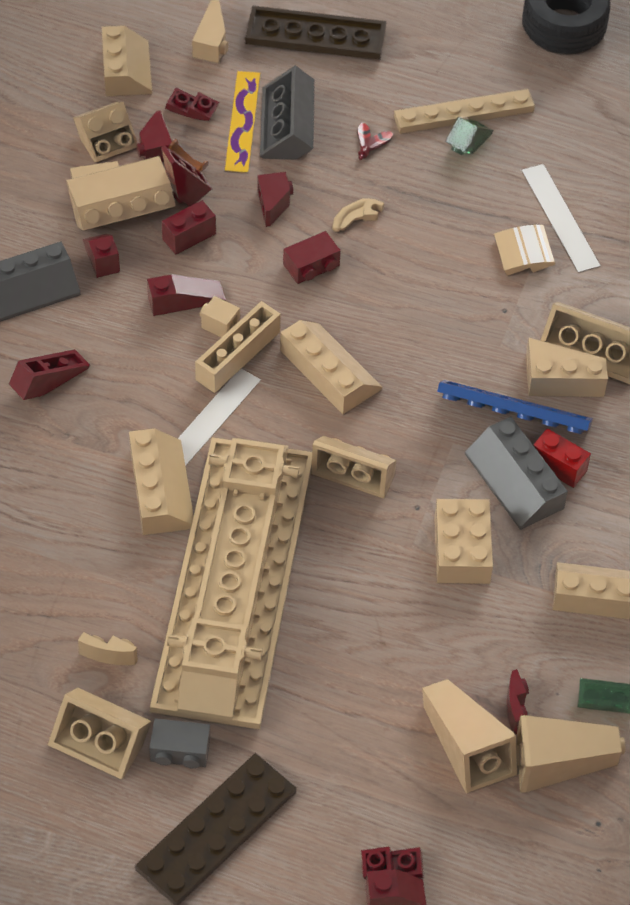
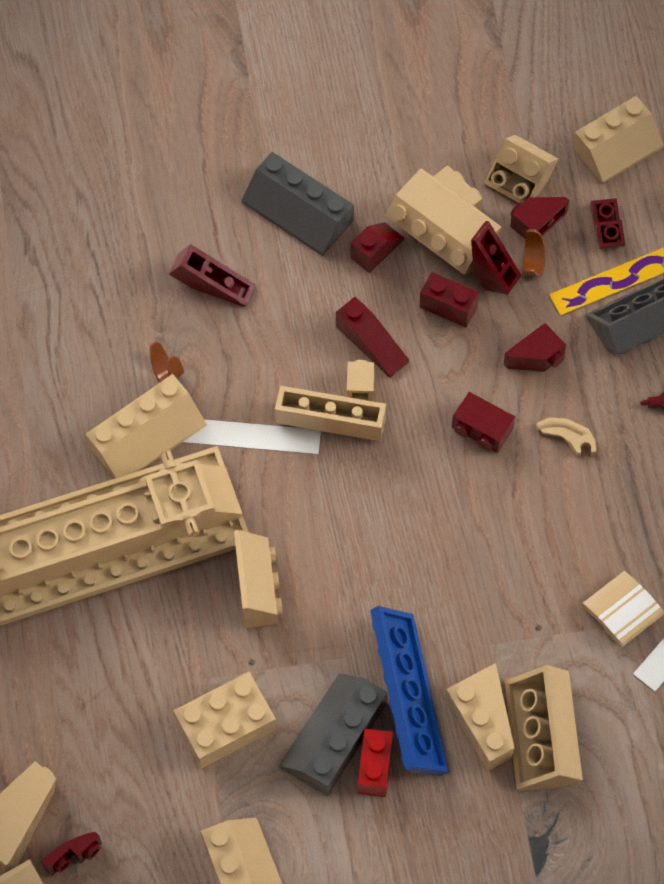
camera: 65 degrees right, 10 degrees up
(110, 447) = (162, 364): none -> dark orange helmet
(327, 365) = (366, 502): tan slope -> none

